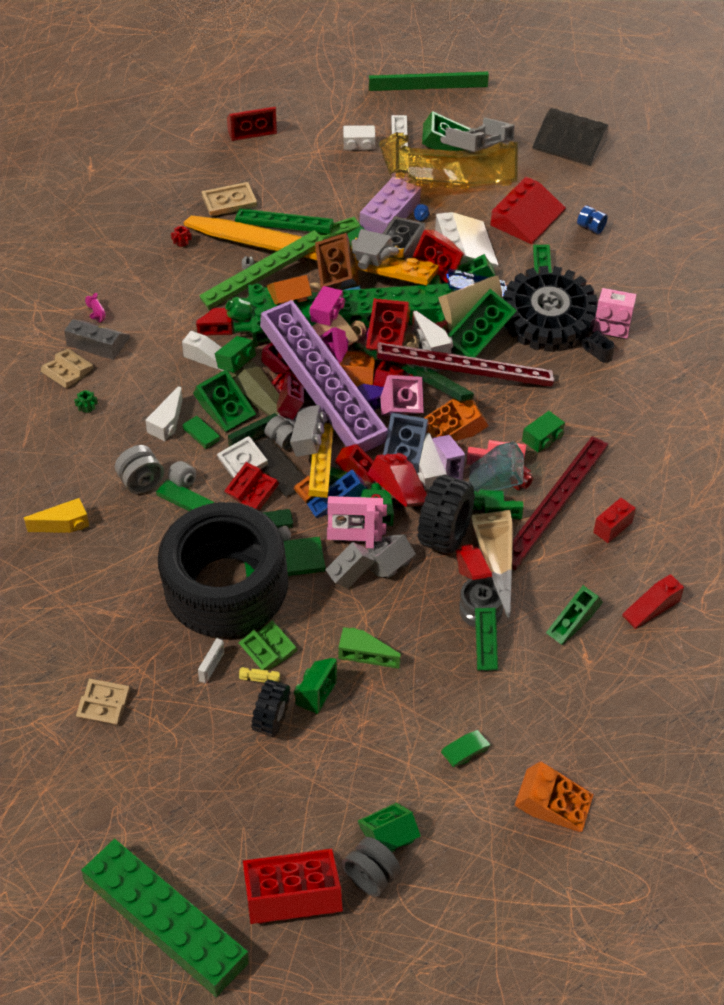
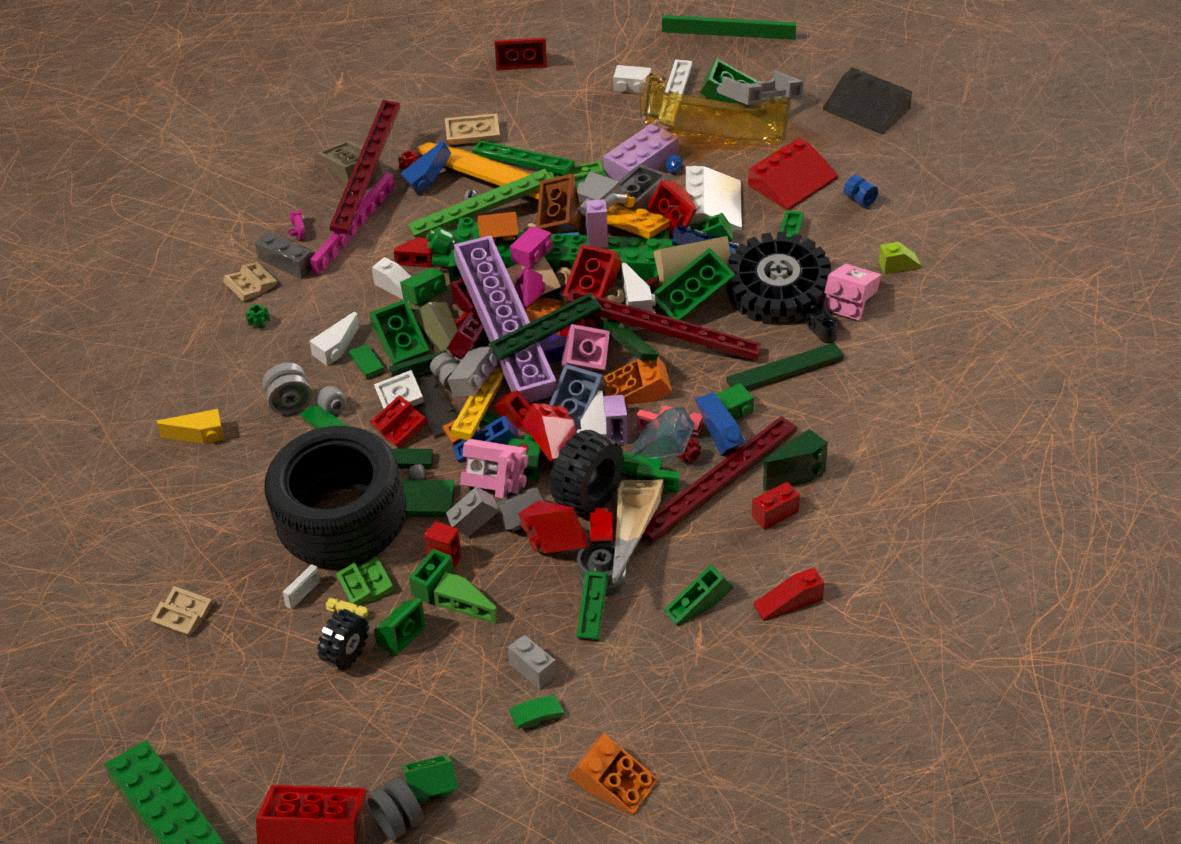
camera: 15 degrees right, 5 degrees down
(127, 243) = (342, 160): none -> dark tan slope
(146, 303) = (337, 241): none -> dark pink plate
(148, 247) = (364, 167): none -> dark red plate
(199, 244) = (426, 169): none -> blue slope
(329, 632) = (429, 573): none -> green brick
(333, 602) = (444, 539): none -> red brick
(365, 381) = (544, 327): none -> dark green tile
(380, 277) = (596, 223): none -> lavender slope
(431, 570) = (552, 527): none -> red slope
(448, 701) = (532, 662): none -> light grey brick
(544, 450) = (720, 424): none -> blue slope
(579, 390) = (786, 367): none -> dark green tile
(623, 477) = (796, 461): none -> dark green slope
(641, 278) = (897, 258): none -> lime slope

